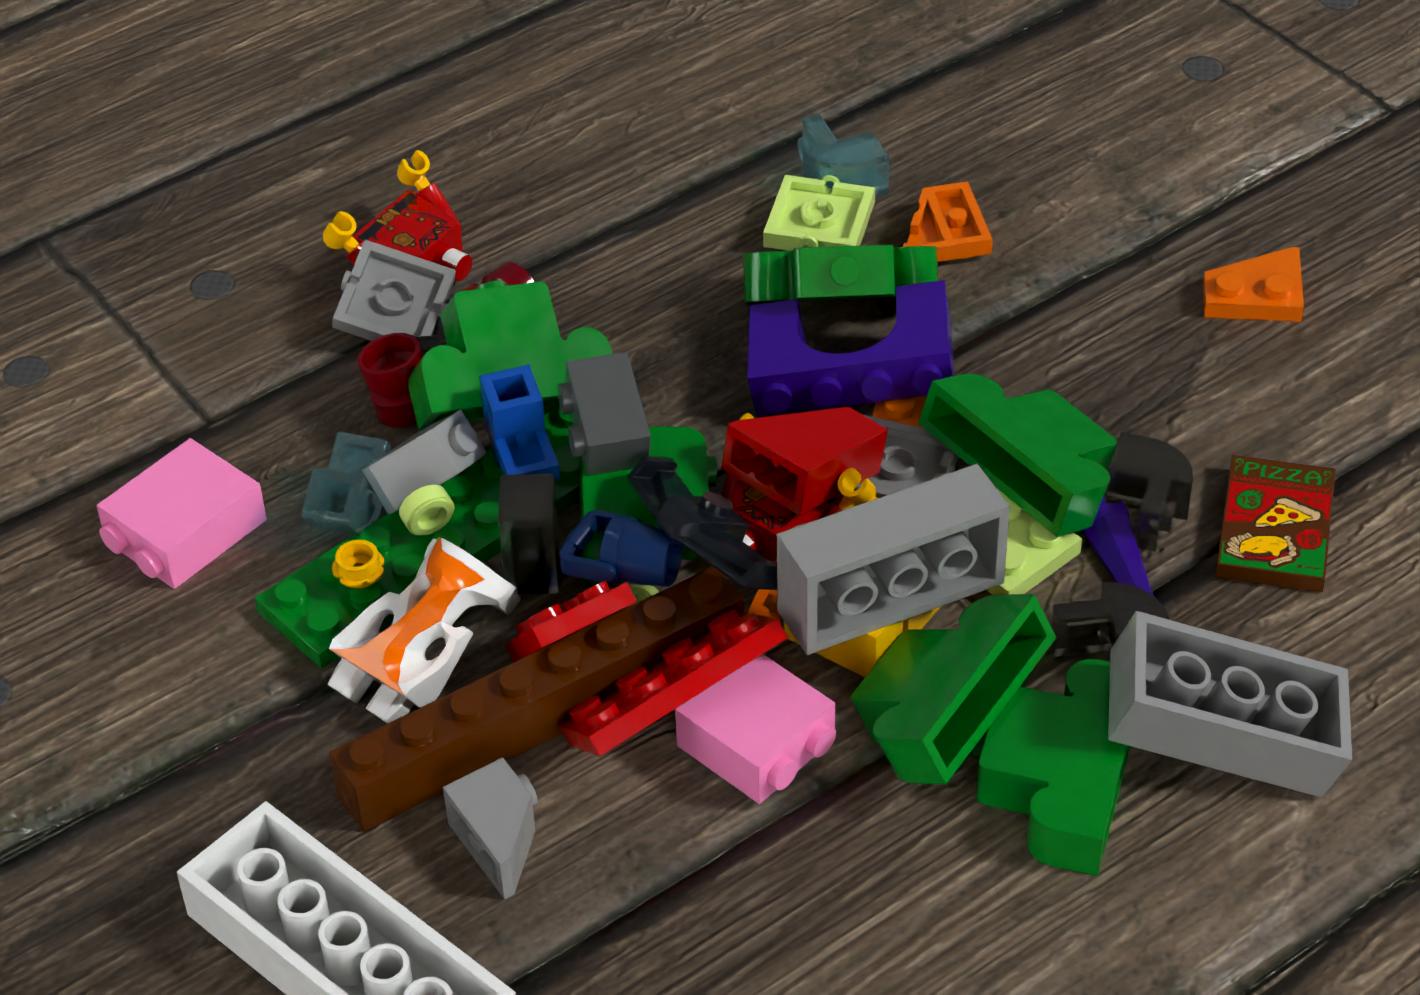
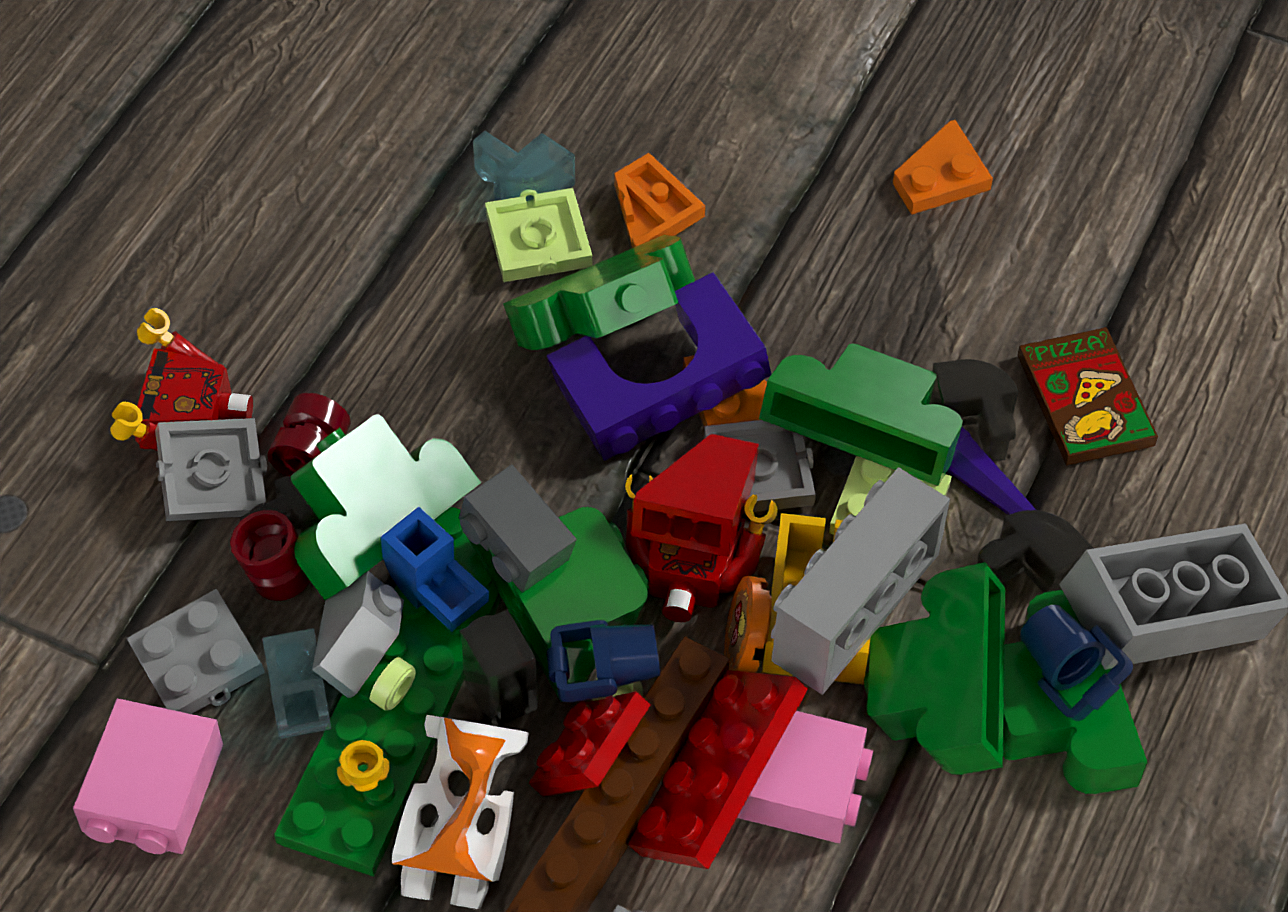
camera: 30 degrees left, 10 degrees up
(286, 437) = (196, 655): none -> light grey plate
(701, 523) = (668, 607): black plate -> none
(1074, 714) = (1069, 656): none -> dark blue piece

